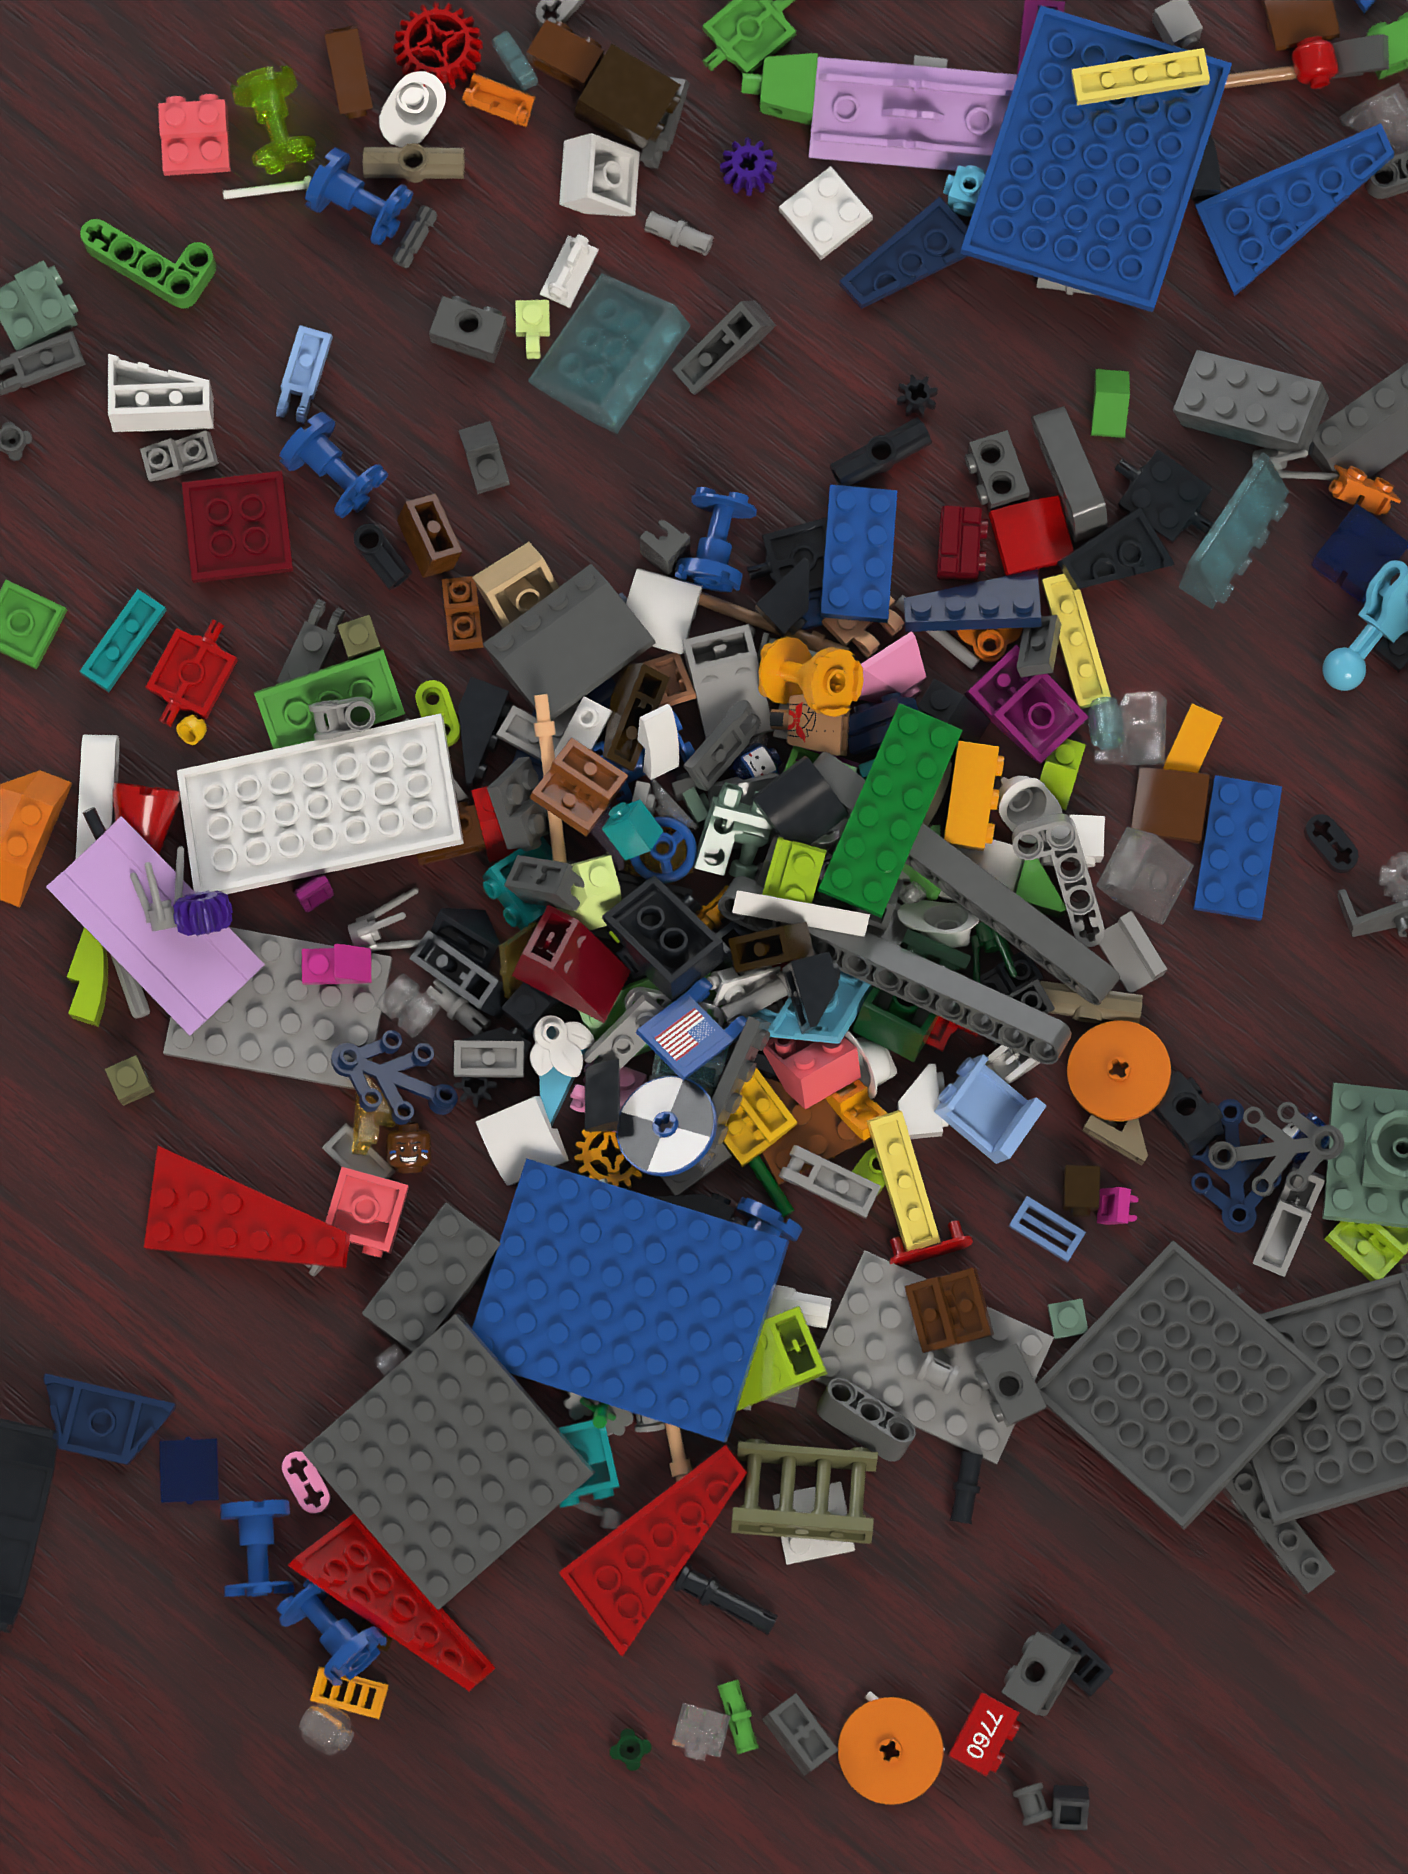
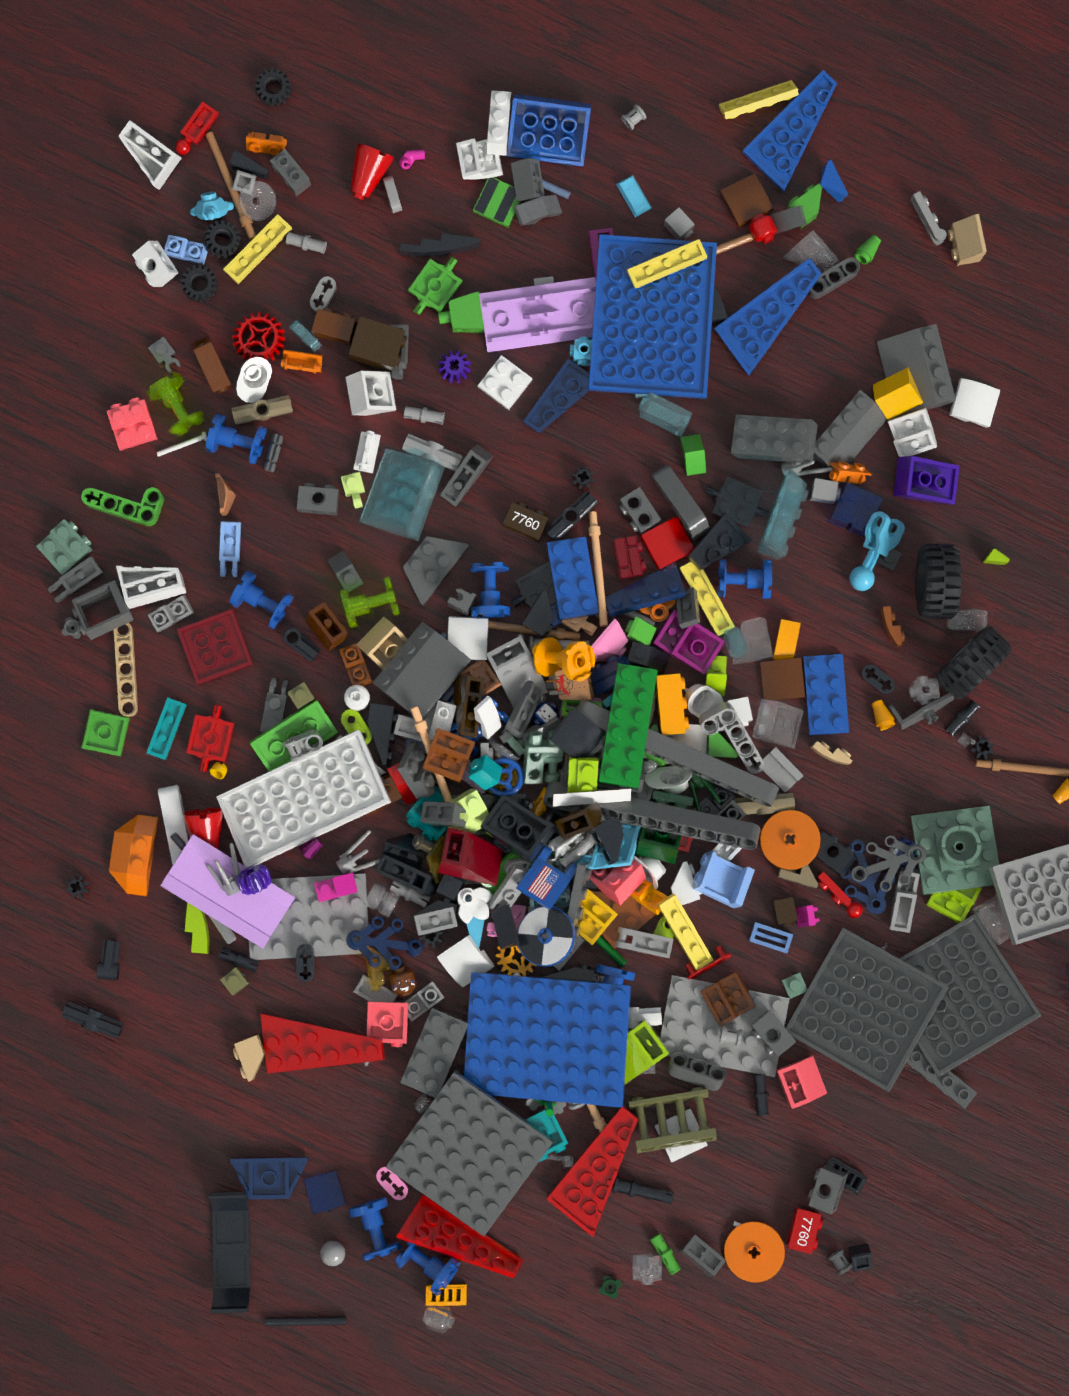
camera: 20 degrees left, 5 degrees up
(60, 399) = (94, 597): none -> dark grey window
(86, 543) = (126, 678): none -> tan beam
(102, 1679) = (304, 1321): none -> black bar
(124, 1211) = (251, 1055): none -> tan slope
(145, 1047) = (239, 959): none -> black pin
(176, 1574) = (332, 1253): none -> light grey piece
(246, 1077) = (300, 963): none -> black beam
(275, 36) = (163, 353): none -> flat silver plate
(318, 285) = (226, 495): none -> nougat slope
(435, 1190) = (423, 1001): none -> light grey slope
(451, 663) = (357, 697): none -> white head
(497, 512) = (361, 604): none -> clear neon green piece
(497, 927) = (420, 842): none -> dark grey pin
(630, 479) = (432, 564): none -> dark grey wing
(676, 290) = (432, 451): none -> light grey piece
(803, 444) = (525, 521): none -> dark brown brick
(913, 490) = (594, 533): none -> light nougat bar
(950, 665) = (640, 631): none -> bright green slope
(1040, 1481) = (801, 1082): none -> coral slope
(1078, 322) = (664, 414): none -> clear light blue window
(1160, 624) = (752, 578): none -> blue piece
(1179, 1187) = (838, 896): none -> red plate
(1234, 953) = (838, 756): none -> tan slope
(1316, 512) = (825, 491): none -> light grey brick
(1325, 906) = (883, 717): none -> light orange cone
(1376, 769) = (894, 633): none -> dark orange slope

